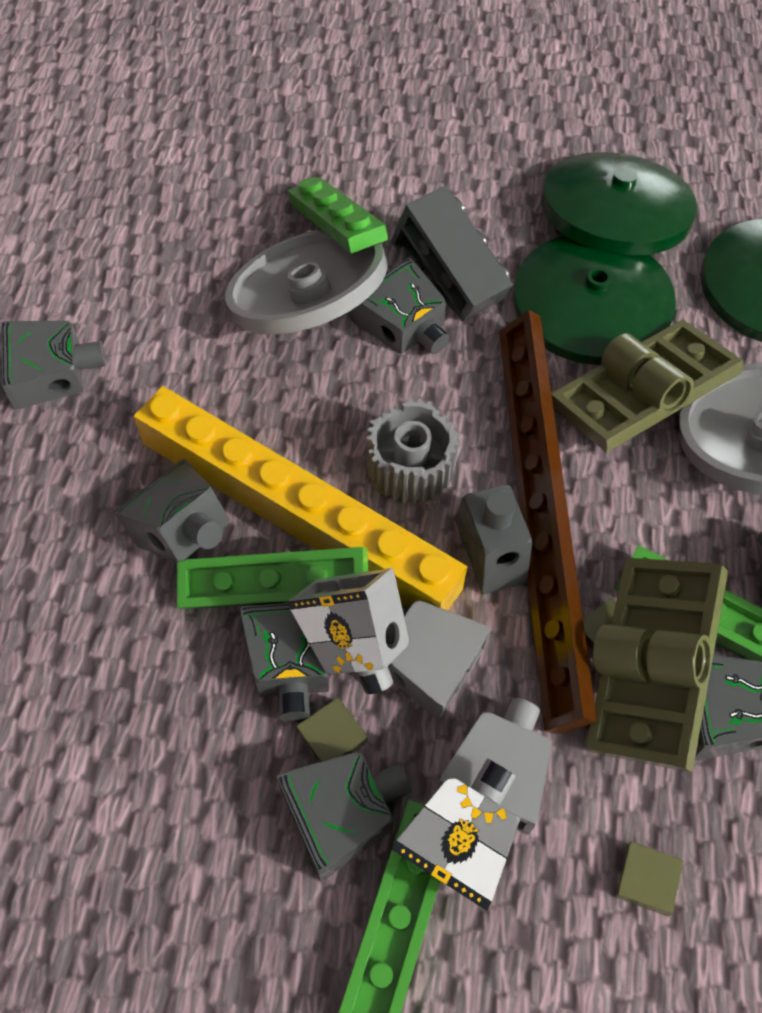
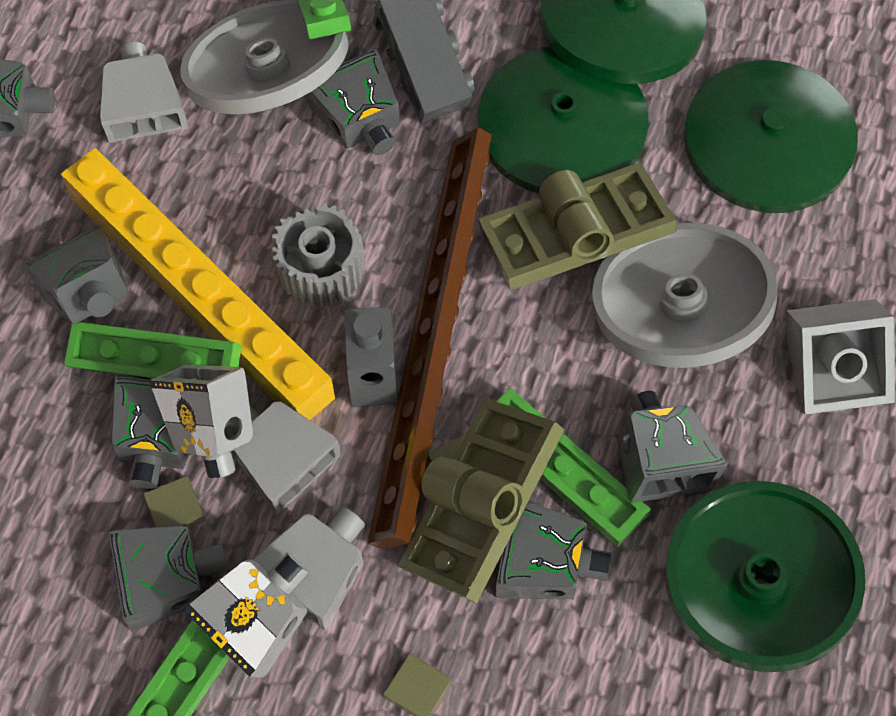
camera: 15 degrees right, 5 degrees up
(193, 336) = (139, 96): none -> light grey torso

